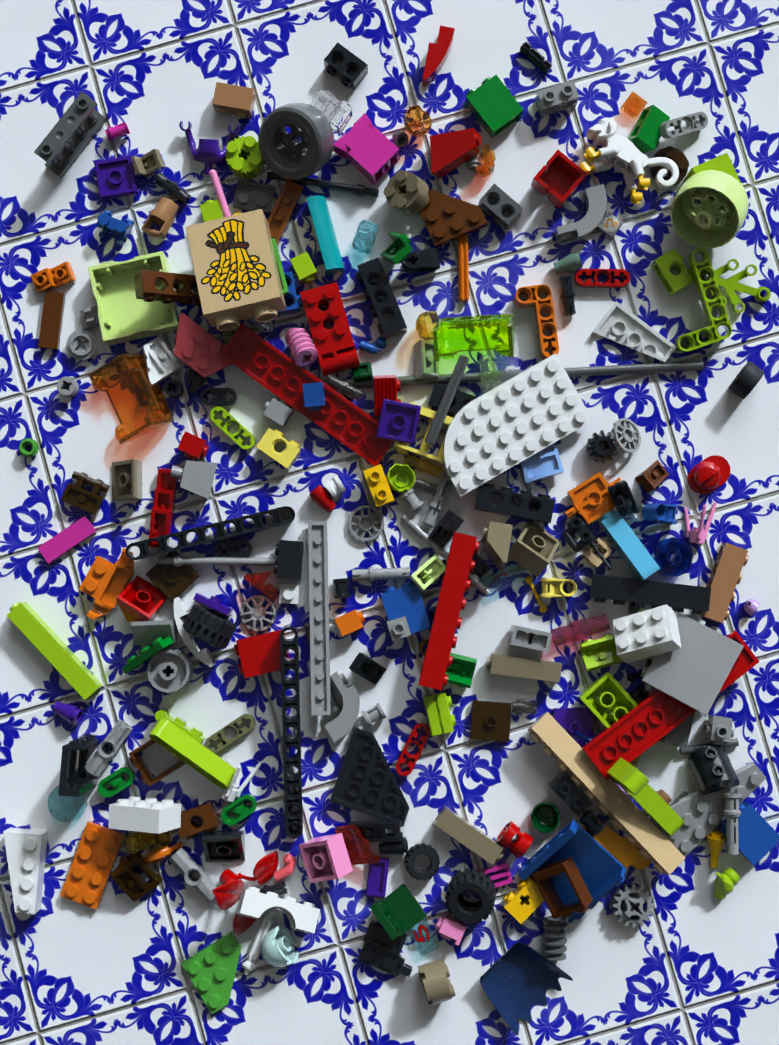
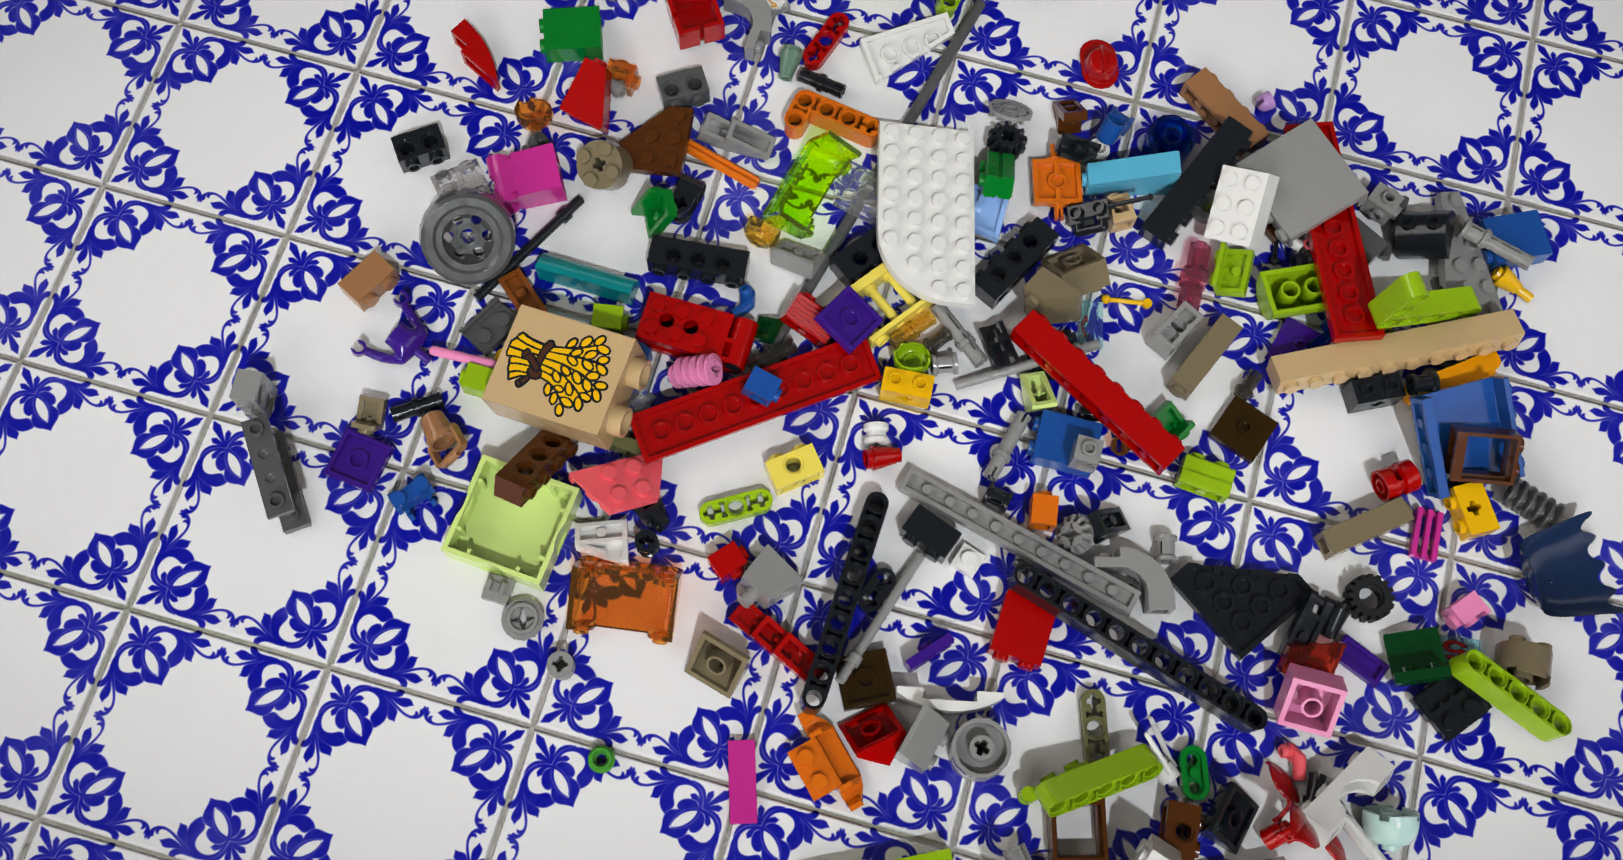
camera: 65 degrees left, 15 degrees down
(51, 320) = (469, 637): reddish brown tile -> none
(53, 278) = (420, 605): orange slope -> none
(82, 498) = (707, 729): dark brown plate -> none
(112, 84) = (253, 393): none -> light grey brick
(117, 131) = (307, 427): dark pink pin -> none
(147, 653) = (945, 762): green plate -> none
(209, 626) = (955, 667): black tyre -> none
(218, 392) = (684, 498): black beam -> none
(243, 148) = (441, 306): lime brick -> none
(258, 580) = (934, 584): clear red slope -> none
(258, 613) = (969, 609): light grey wheel -> none
(278, 412) = (751, 445): light grey brick -> none
(352, 651) = (1079, 544): none -> light grey gear
(365, 236) = (620, 235): clear light blue gear -> none
(366, 522) = (938, 428): light grey wheel -> none
(401, 759) = (1246, 542): red beam -> none
(411, 991) = (1510, 695): none -> lime beam
(446, 400) = (859, 257): dark grey axle -> none
(467, 910) = (1459, 564): black tyre -> none
(488, 265) = (736, 137): none -> light grey slope
(545, 817) = (1387, 433): dark green hair -> none
(556, 587) = (1133, 275): light yellow piece -> none
(568, 456) = (997, 175): none -> green brick
(638, 899) = (1535, 400): light grey gear -> none
(699, 534) = (1156, 107): bright pink plant -> none
(725, 882) = (1556, 295): lime animal -> none

